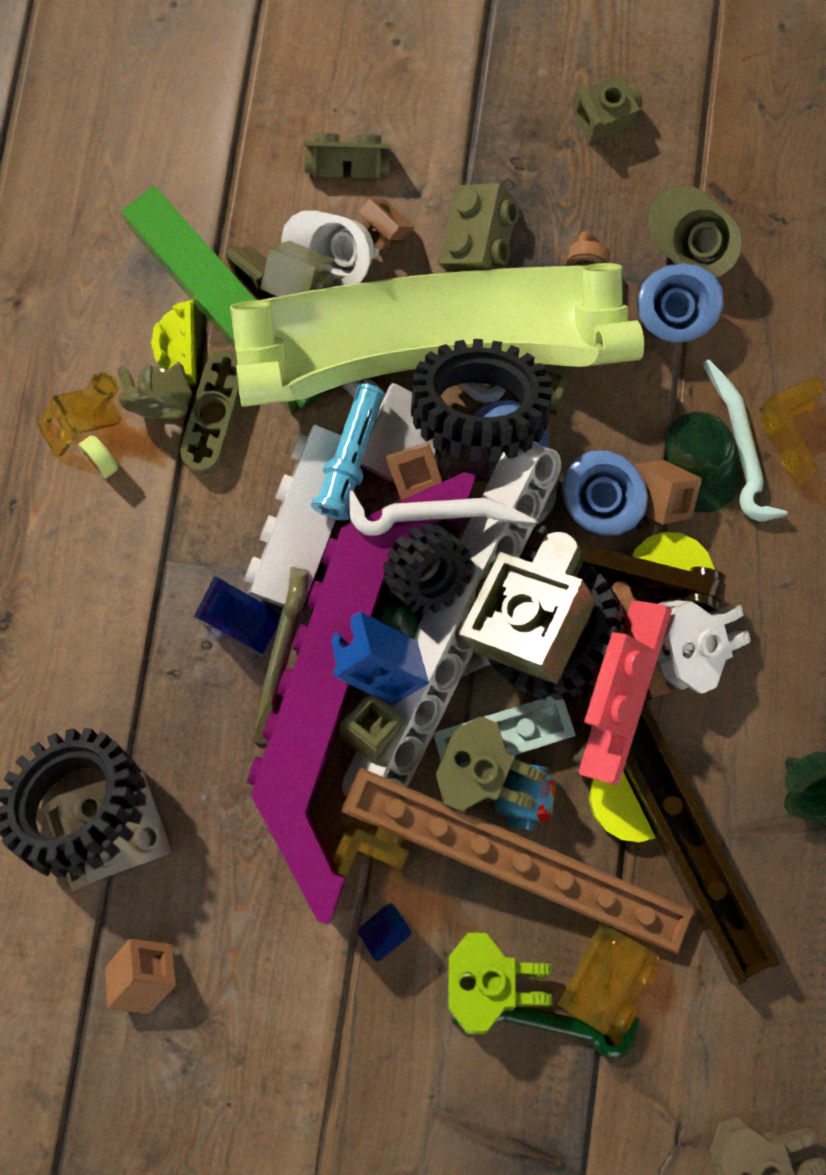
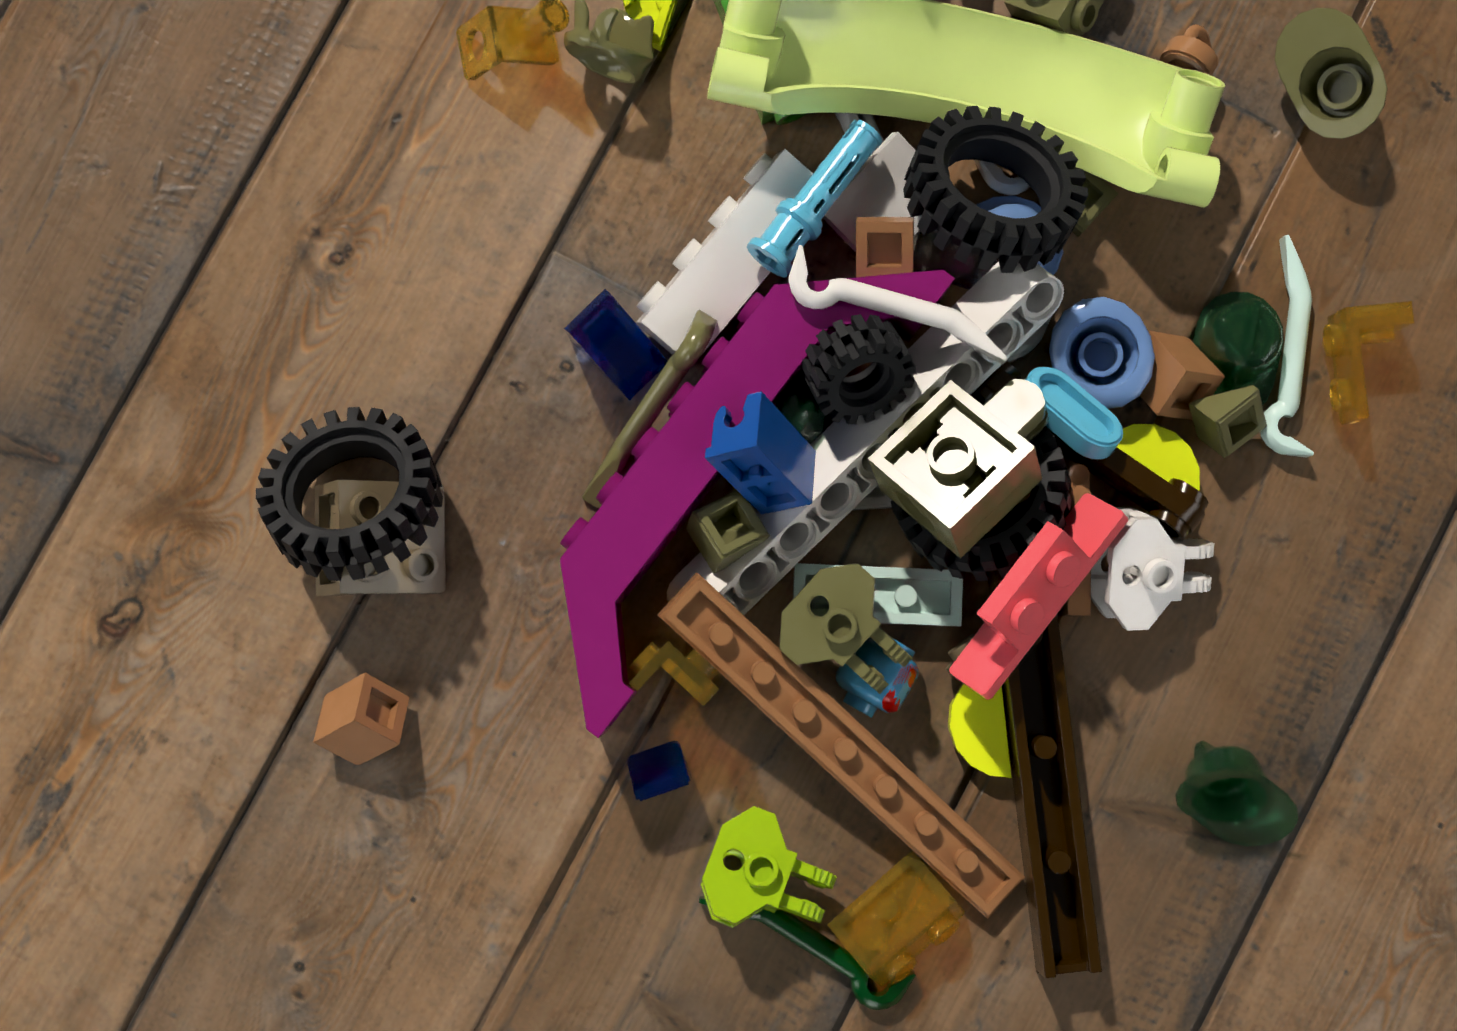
camera: 20 degrees right, 5 degrees up
(98, 456) = (516, 96): yellowish green tile -> none
(194, 439) = (635, 116): olive beam -> none
(604, 545) = (1077, 415): none -> medium azure tile
(680, 302) = (1280, 153): medium blue hat -> none
(716, 508) = (1228, 419): none -> olive slope

